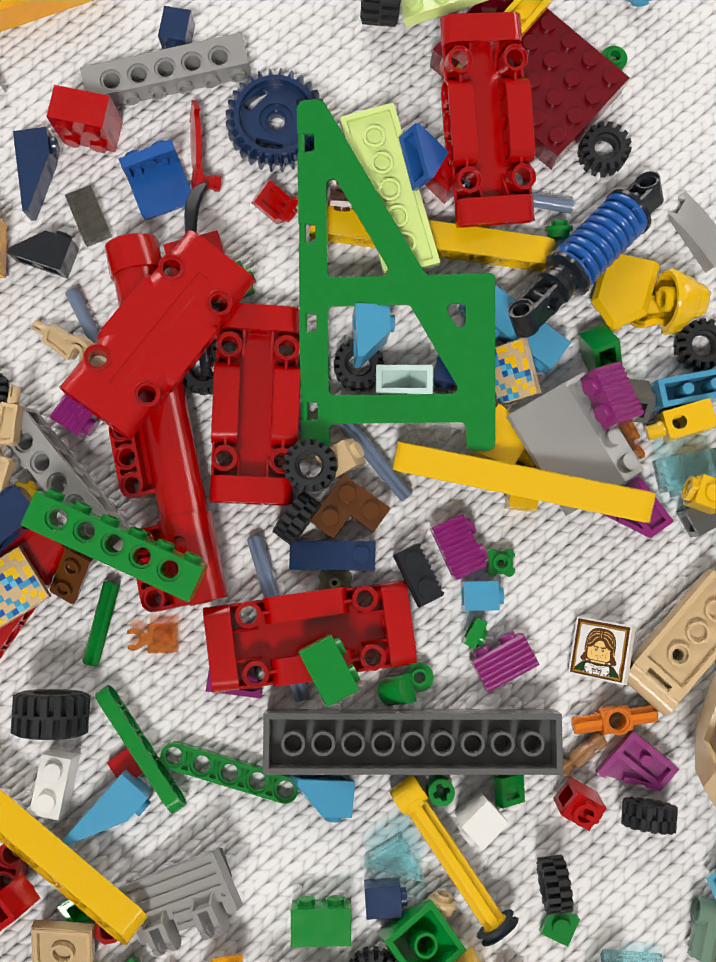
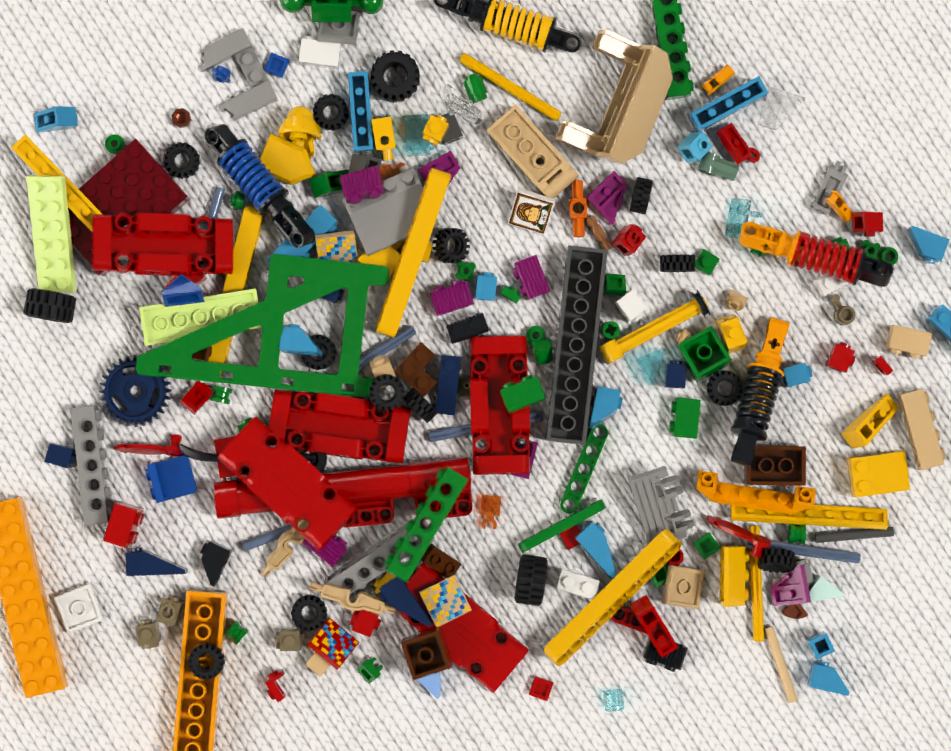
camera: 75 degrees left, 5 degrees up
(88, 216) = (189, 530): clear smoke tile -> none
(101, 623) = (476, 546): green axle -> none
(283, 237) = (221, 394): none -> green wheel
(404, 379) = (333, 321): light aqua slope -> none
(542, 549) = (442, 245): none -> black tyre
(662, 143) = (181, 118): none -> copper tile

